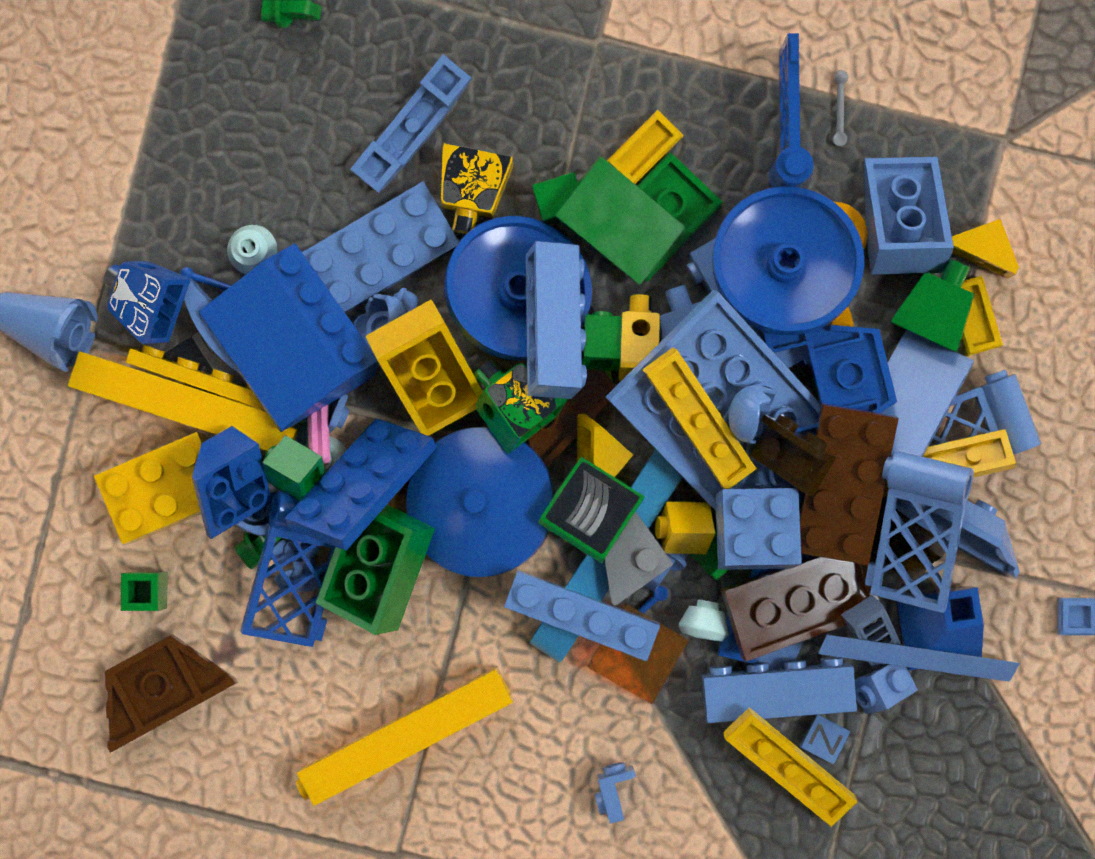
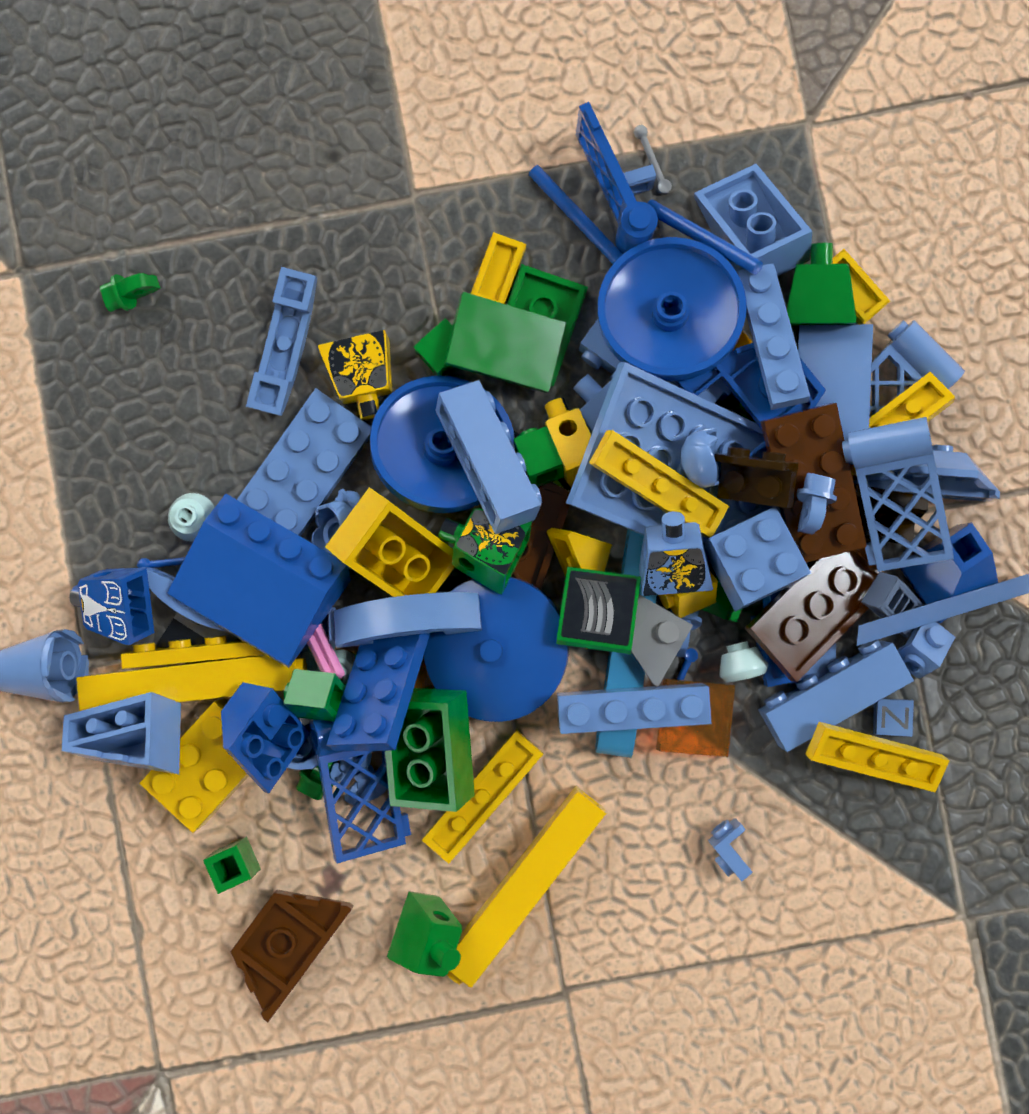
camera: 30 degrees left, 0 degrees up
(104, 424) = (128, 732): none -> medium blue wedge
(293, 739) = (426, 936): none -> green torso
(411, 434) = (407, 616): none -> medium blue slope
(415, 632) = (491, 788): none -> yellow plate
(683, 493) = (674, 558): none -> torso
(743, 128) = (575, 214): none -> blue bar
(816, 123) = (641, 179): none -> medium blue tile
(839, 495) = (815, 496): none -> medium blue piece
(850, 205) = (701, 235): none -> blue bar
(869, 330) = (774, 339): none -> medium blue plate
(988, 248) = (840, 221): yellow slope -> none

